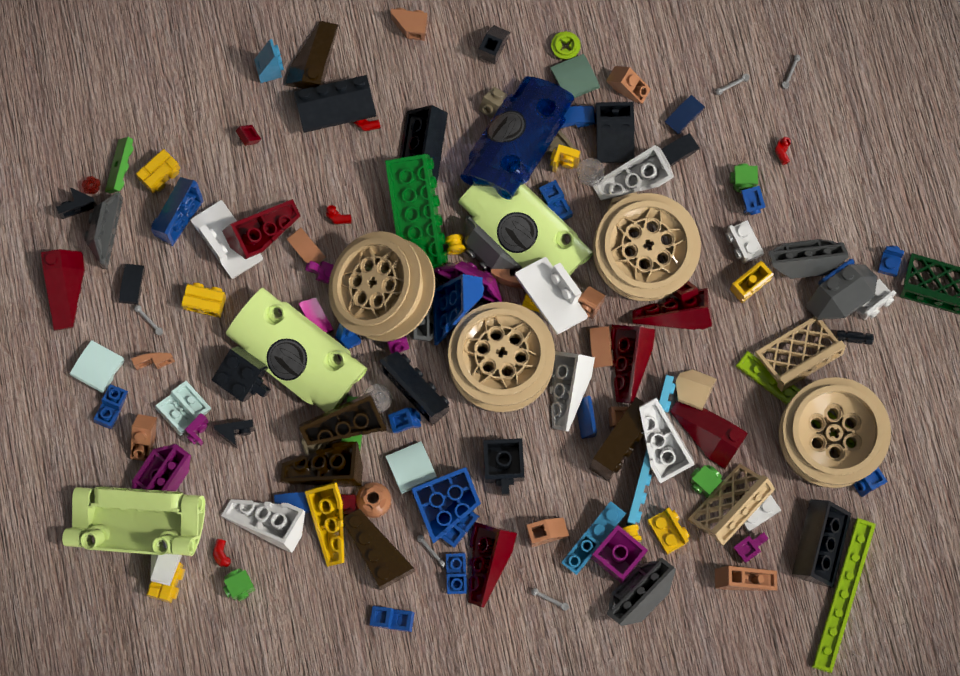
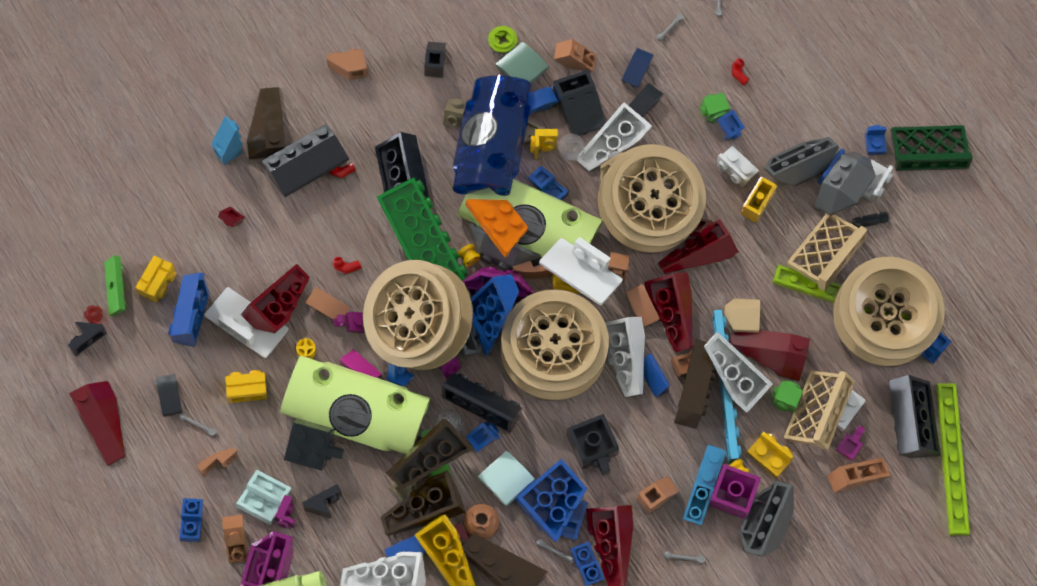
camera: 25 degrees left, 5 degrees down
(97, 366) = (163, 485): light aqua slope -> none
(103, 228) = (121, 351): dark grey wedge -> none
(269, 280) = (306, 345): none -> yellow wheel
(491, 223) = (499, 222): none -> orange wing

